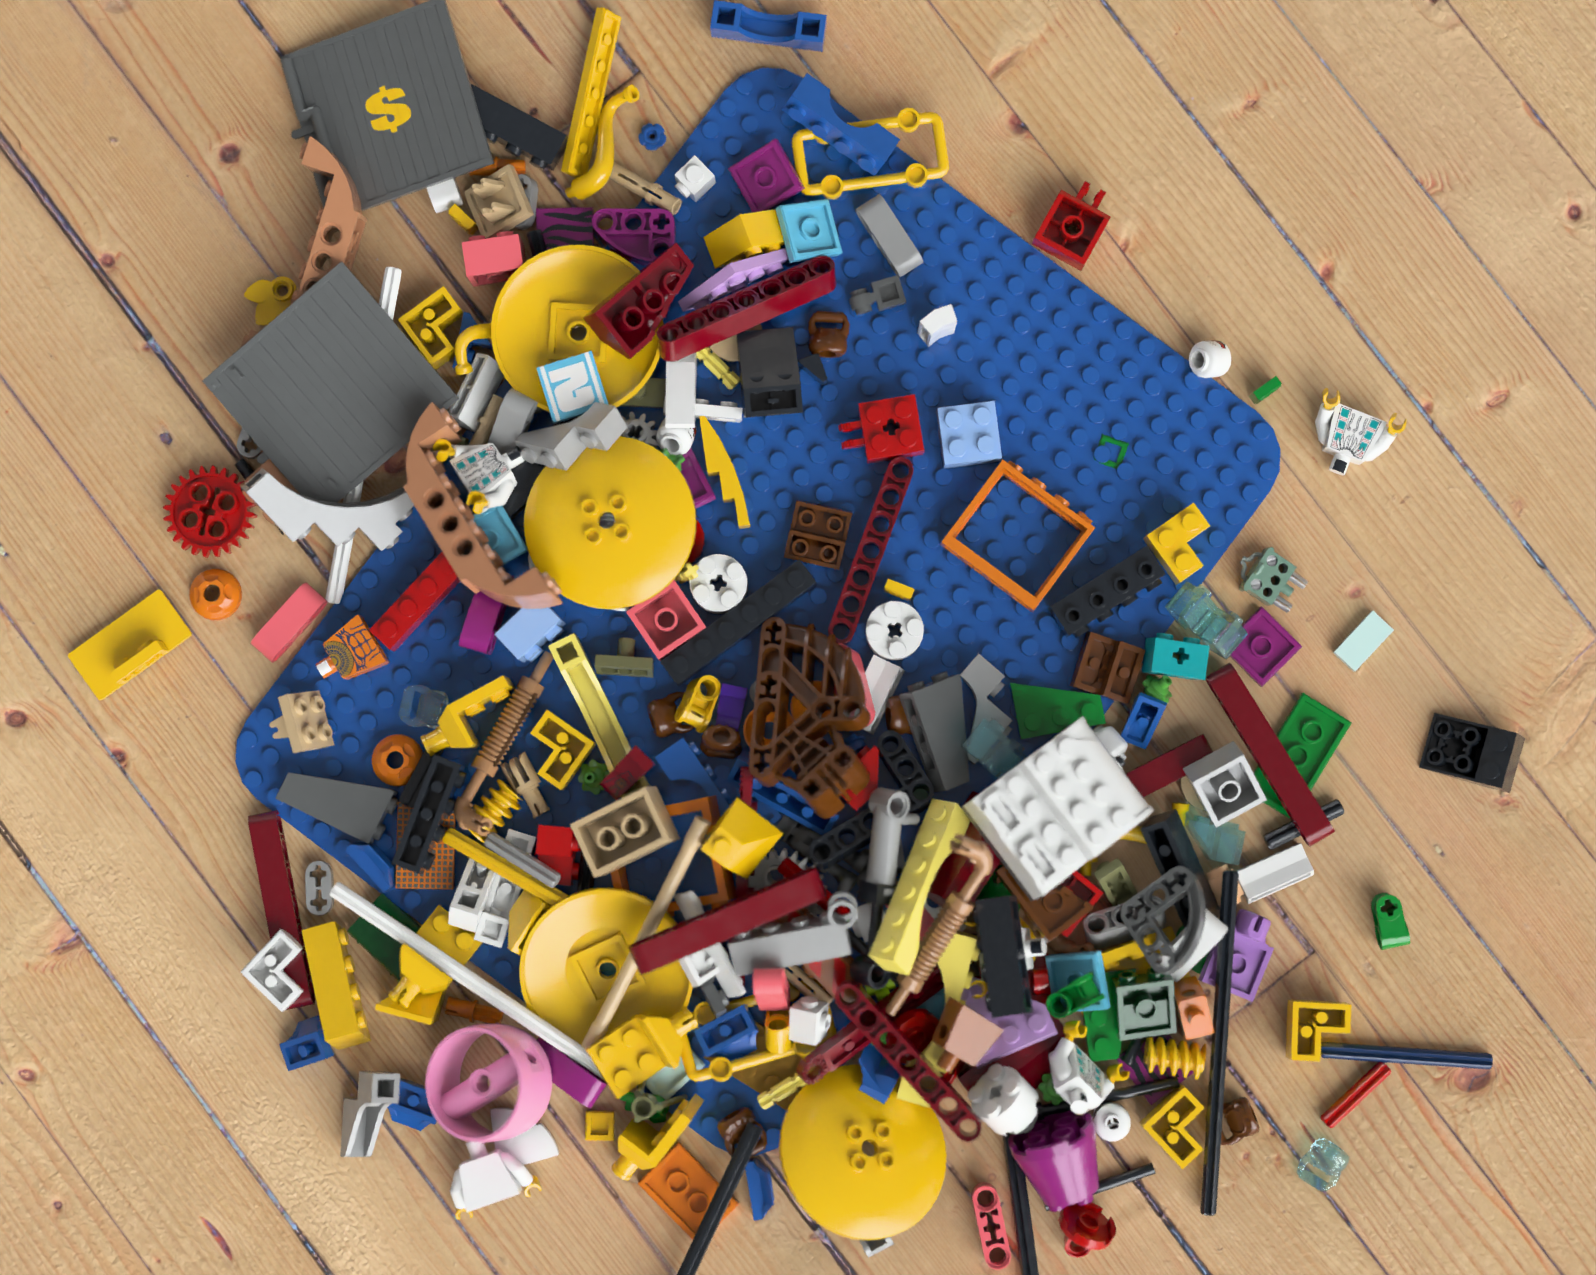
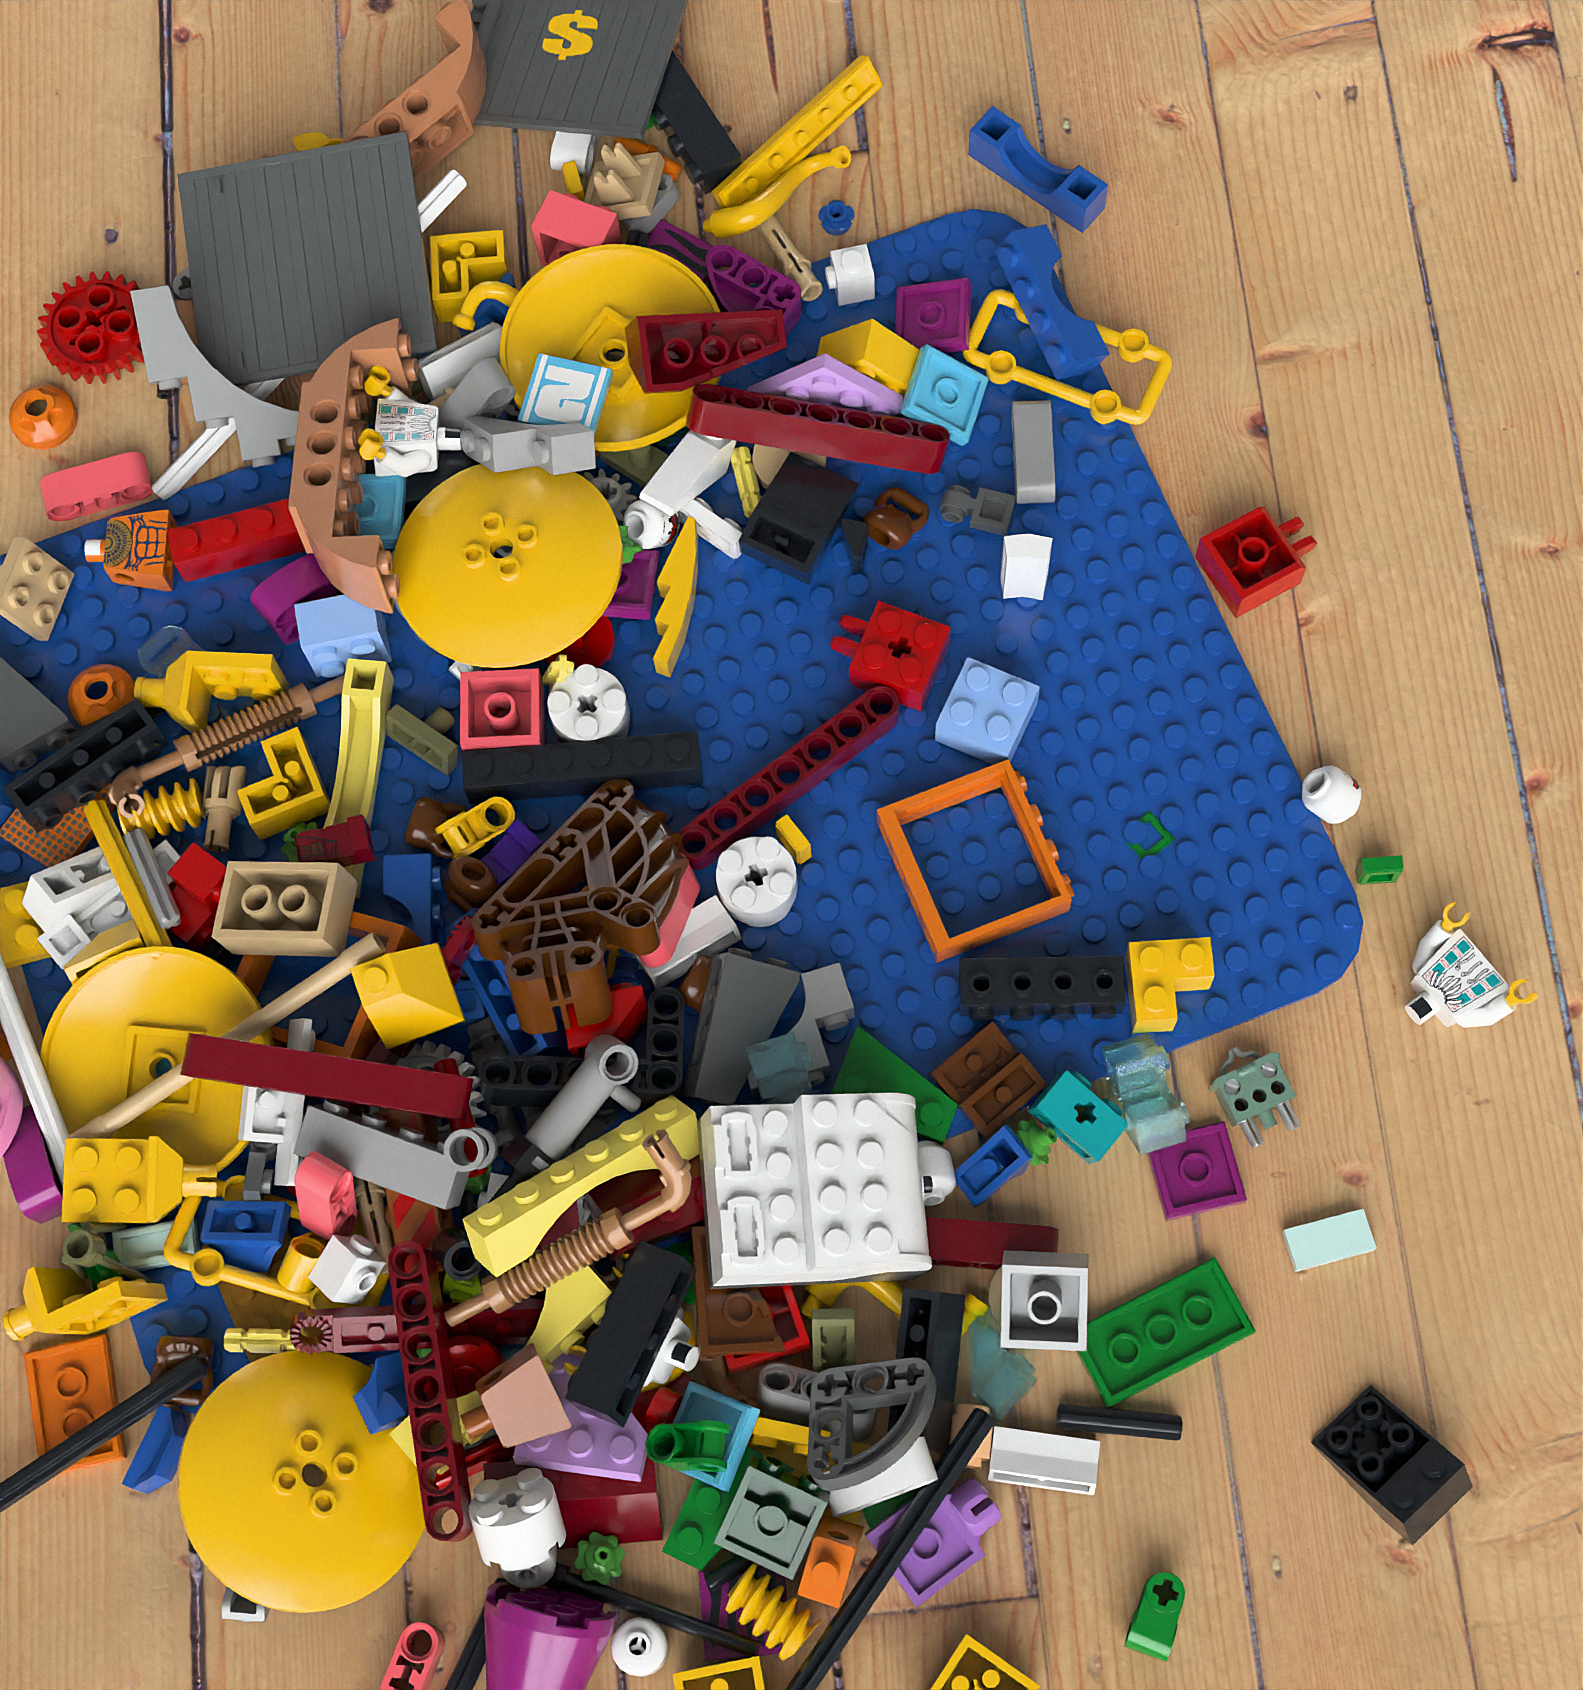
camera: 30 degrees right, 15 degrees down
(599, 1125) = (30, 1252): yellow tile -> none
(818, 534) = (741, 727): reddish brown slope -> none
(1077, 1076) = (631, 1554): white torso -> none
(1269, 754) = (1125, 1306): dark red beam -> none

